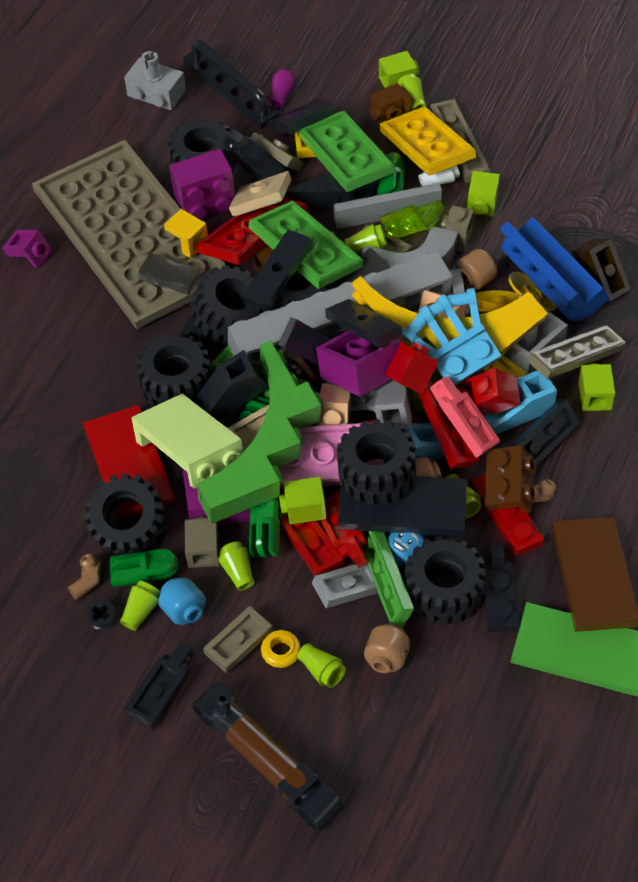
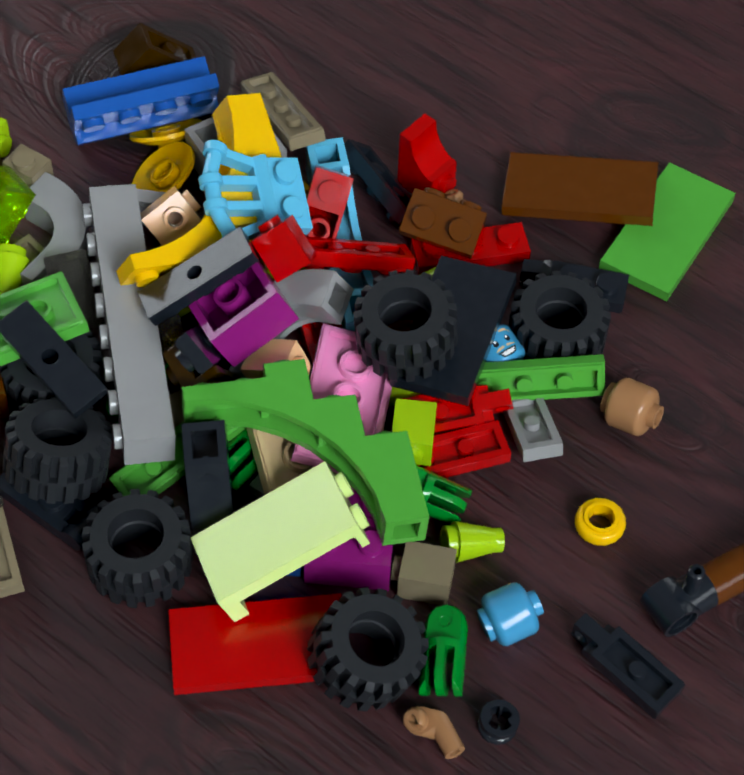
camera: 80 degrees left, 0 degrees up
(141, 602) = (499, 667): lime cone -> none
(238, 639) = (579, 563): dark tan plate -> none
(322, 665) = (638, 479): lime cone -> none
(465, 416) = (355, 228): coral hinge -> none
(477, 269) = (102, 168): medium nougat head -> none
(567, 454) = (424, 159): none -> red arch
(596, 387) = (333, 111): lime brick -> none

